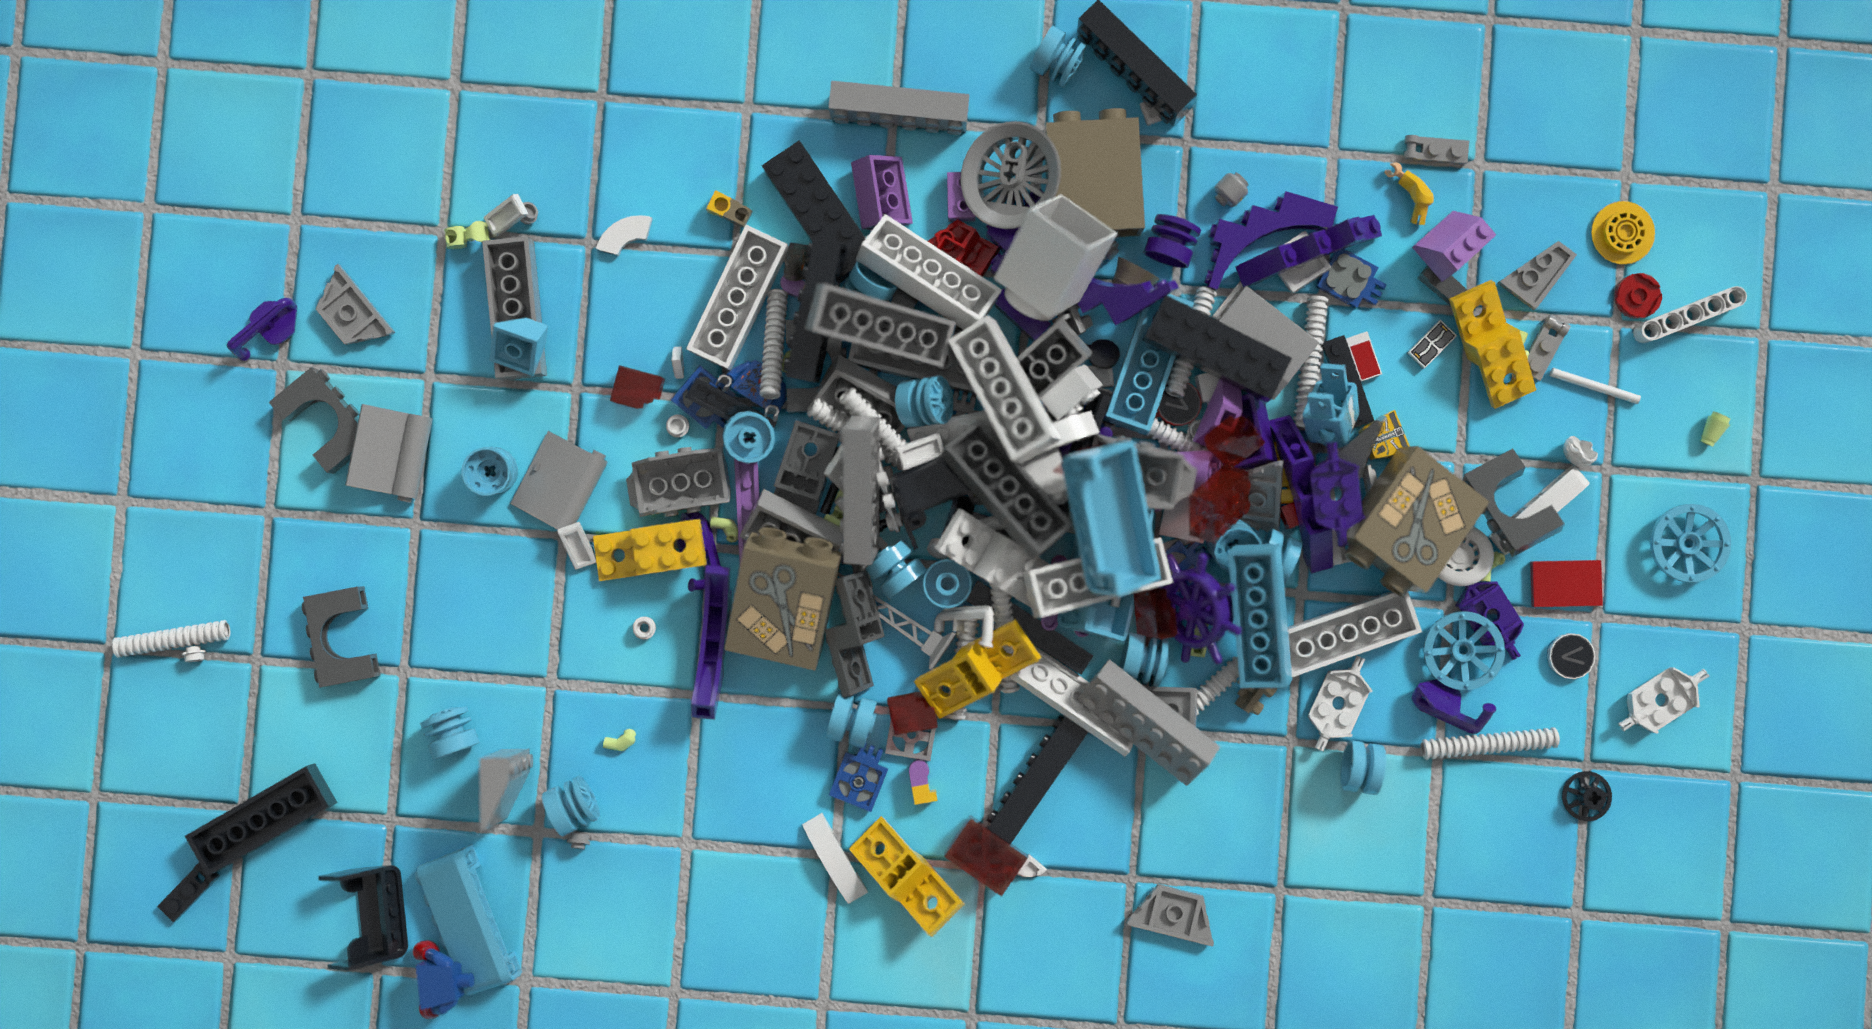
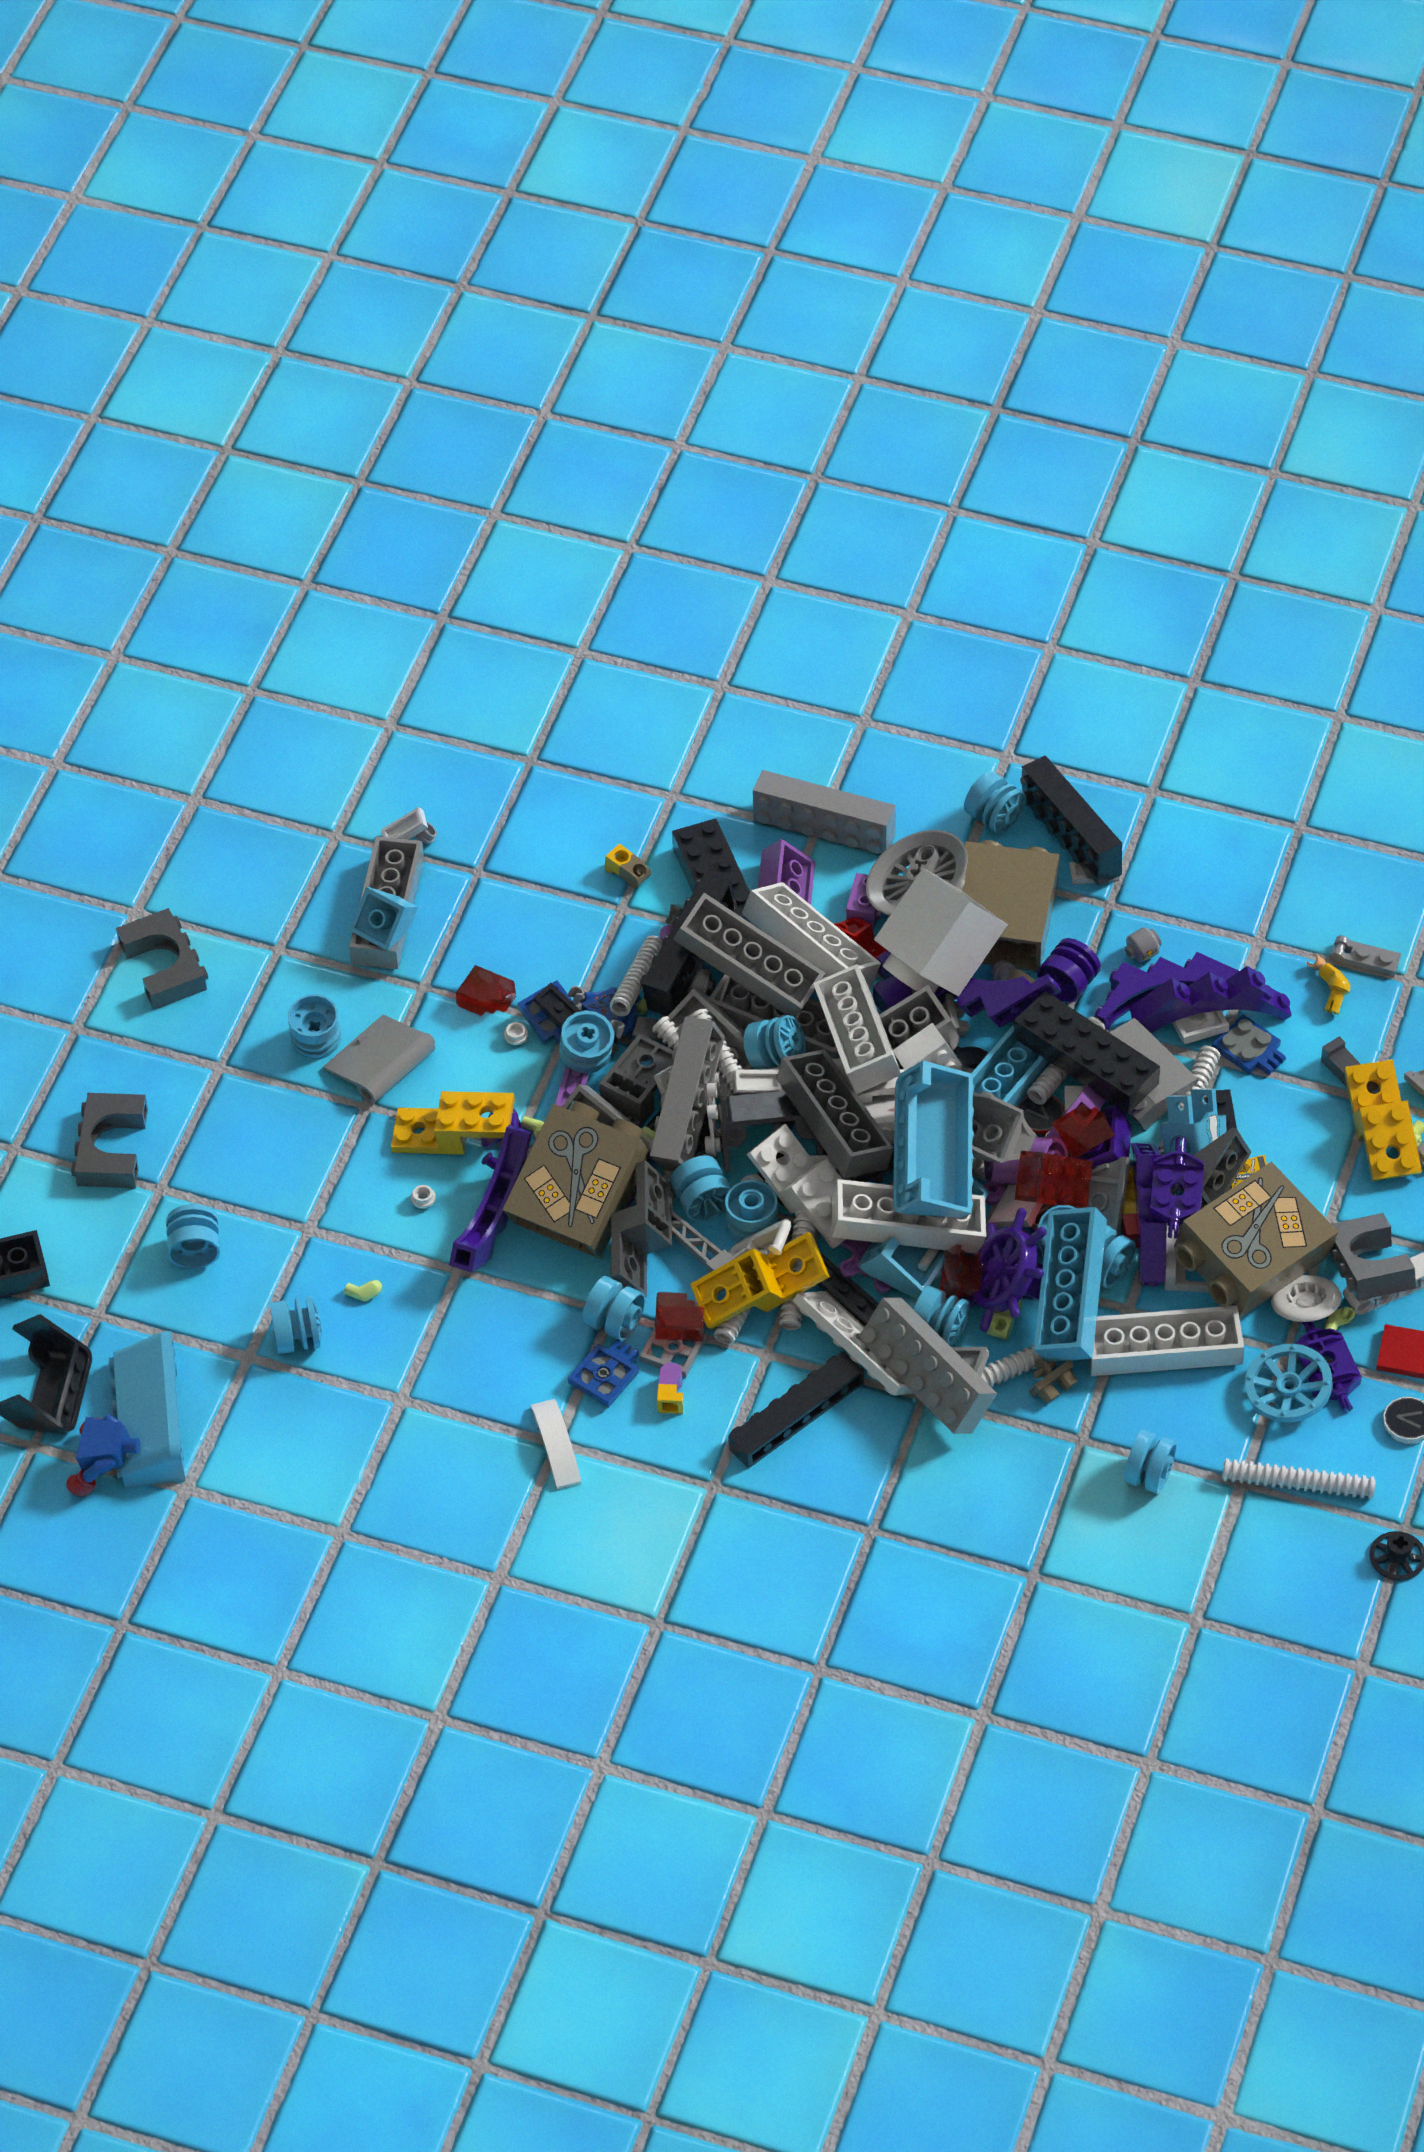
camera: 15 degrees right, 35 degrees down
(272, 320) = (139, 869): dark purple piece -> none
(350, 311) = (222, 878): light grey wing -> none
(389, 452) = (219, 993): light grey door -> none
(457, 236) = (350, 837): yellowish green leg -> none
(501, 782) = (236, 1275): light grey slope -> none
(577, 545) = (379, 1108): white tile -> none
(578, 841) = (289, 1366): light grey plate -> none
(623, 232) = (516, 868): white tile -> none
(677, 362) = (534, 981): white tile -> none
(679, 481) = (505, 1066): light grey slope -> none
(738, 298) = (612, 935): white brick -> none
(906, 876) = (628, 1461): yellow bracket -> none
(985, 855) = (719, 1462): clear red brick -> none
(1031, 868) = (764, 1495): white tile -> none
(1174, 914) = (909, 1567): light grey wing -> none
(1339, 722) = (1150, 1393): white plate -> none
(1364, 356) = (1246, 1113): red tile -> none
(1431, 344) = (1321, 1117): tile -> none
(1445, 705) = (1256, 1444): dark purple piece -> none
(1453, 243) = (1363, 1029): medium lavender slope -> none

